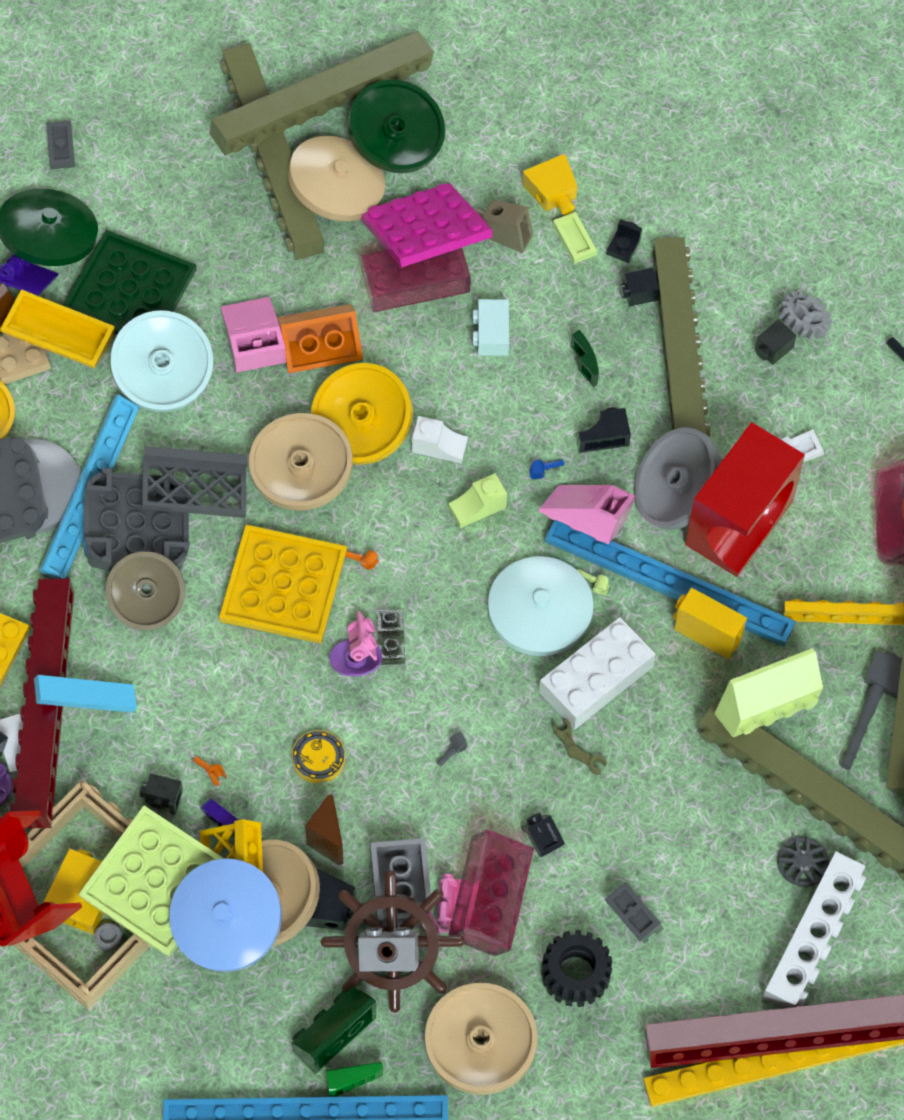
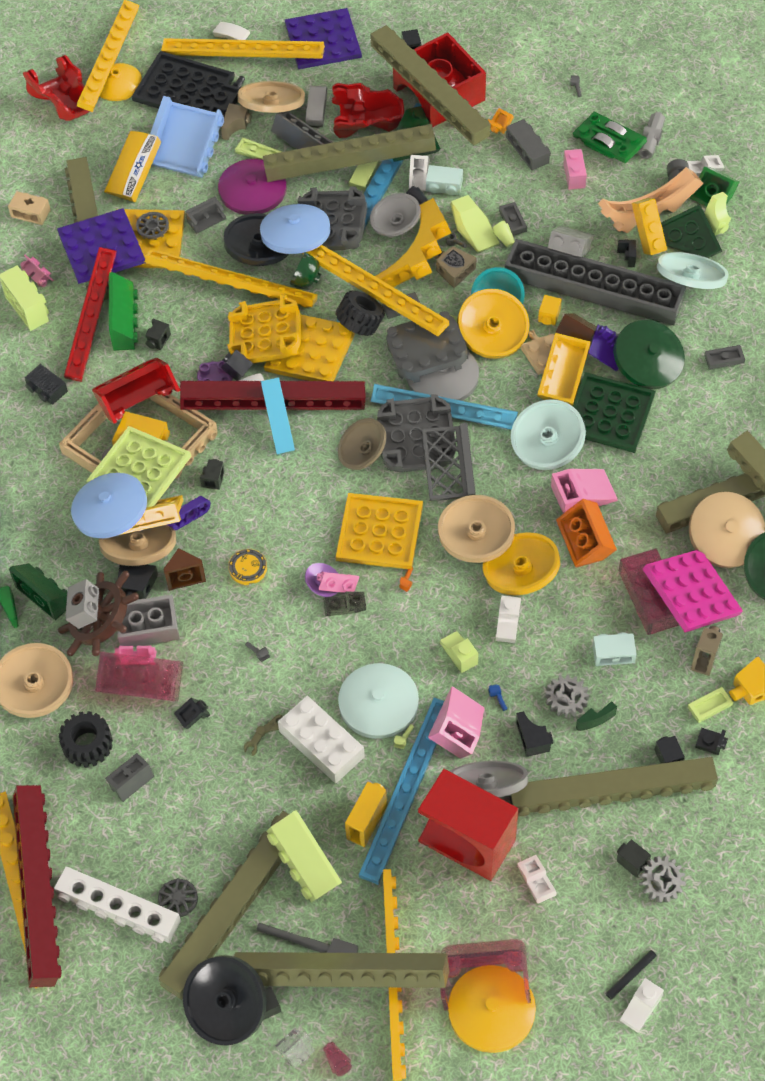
camera: 90 degrees right, 5 degrees down
(214, 771) = (231, 503): orange hand -> none
(556, 384) = (561, 701): none -> light grey gear

